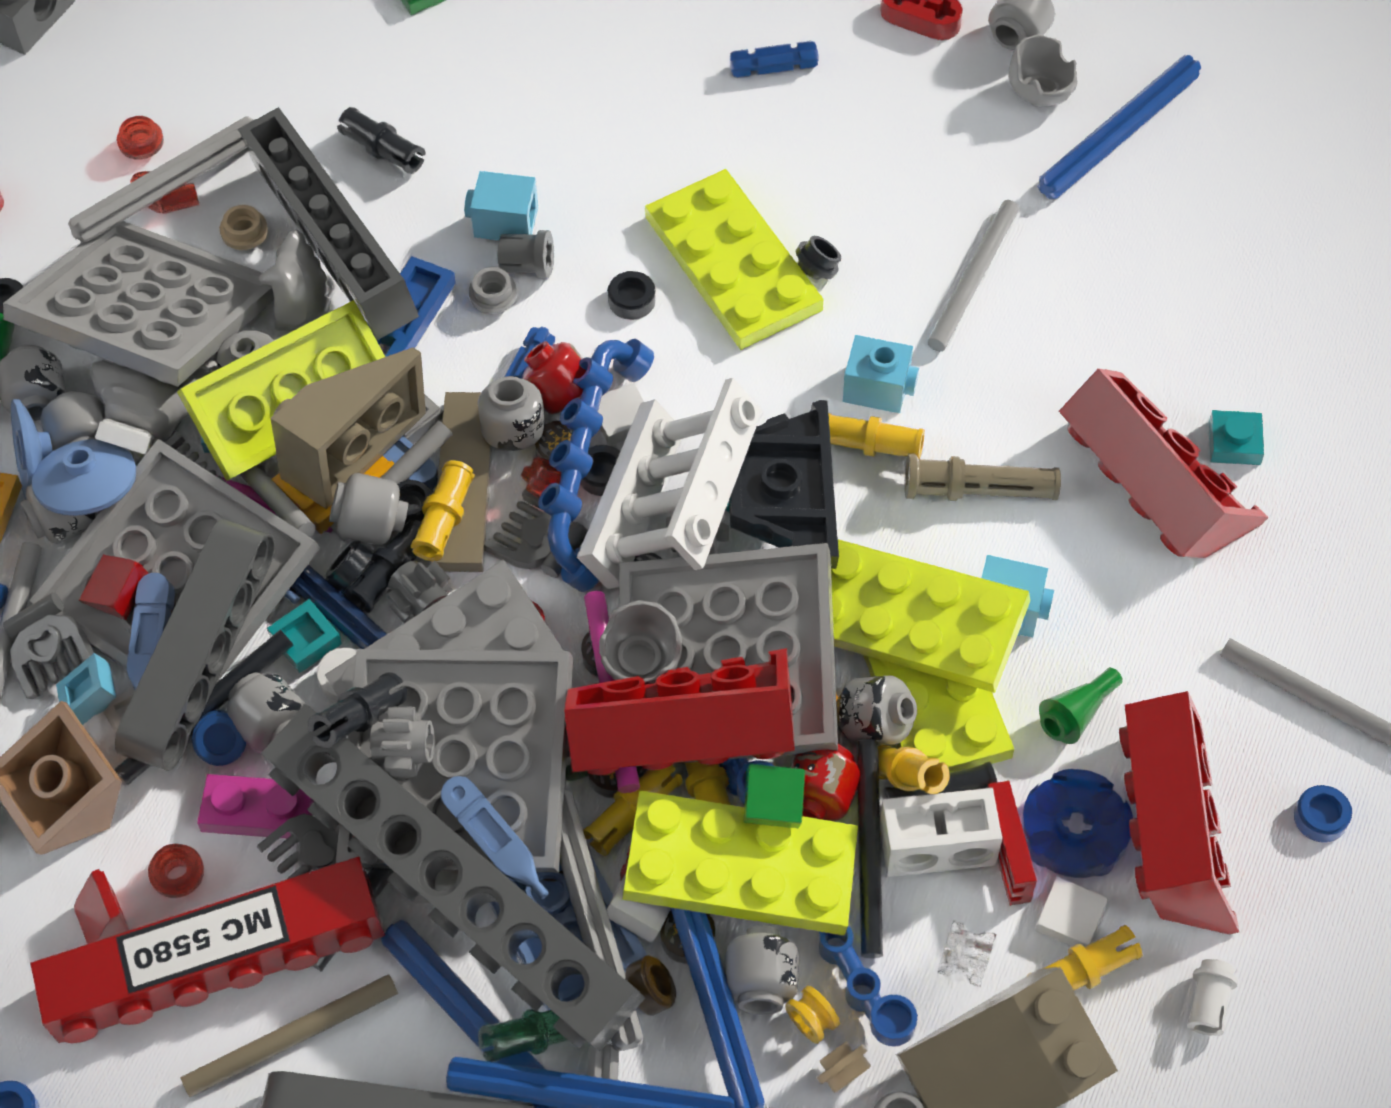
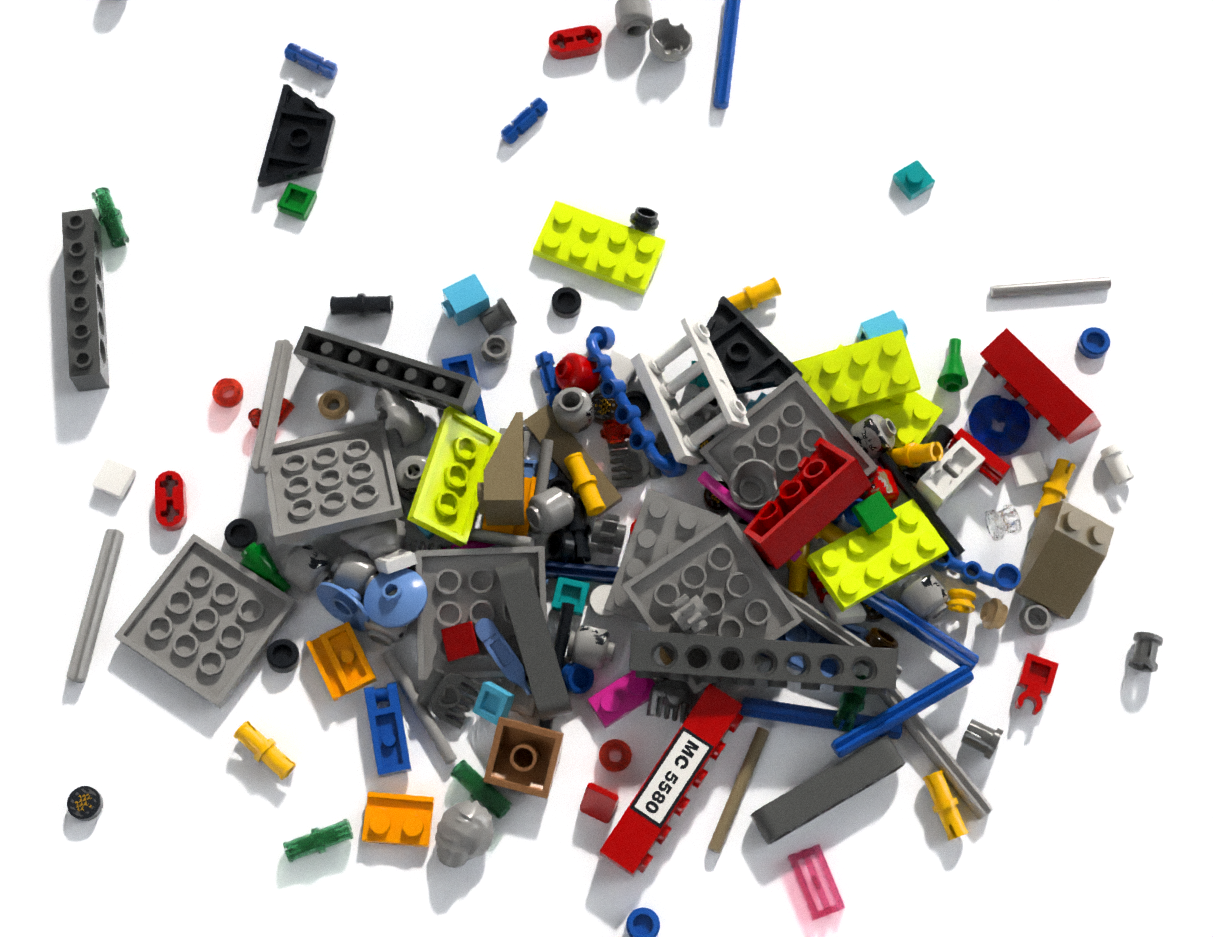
camera: 40 degrees left, 10 degrees up
(357, 709) = (660, 614): black pin -> none
(491, 832) = (762, 625): medium blue piece -> none
(879, 374) = (727, 262): medium azure brick -> none
(956, 478) = (808, 291): dark tan pin -> none
(973, 276) = (723, 176): light grey bar -> none
(1157, 467) = (894, 222): wedge -> none

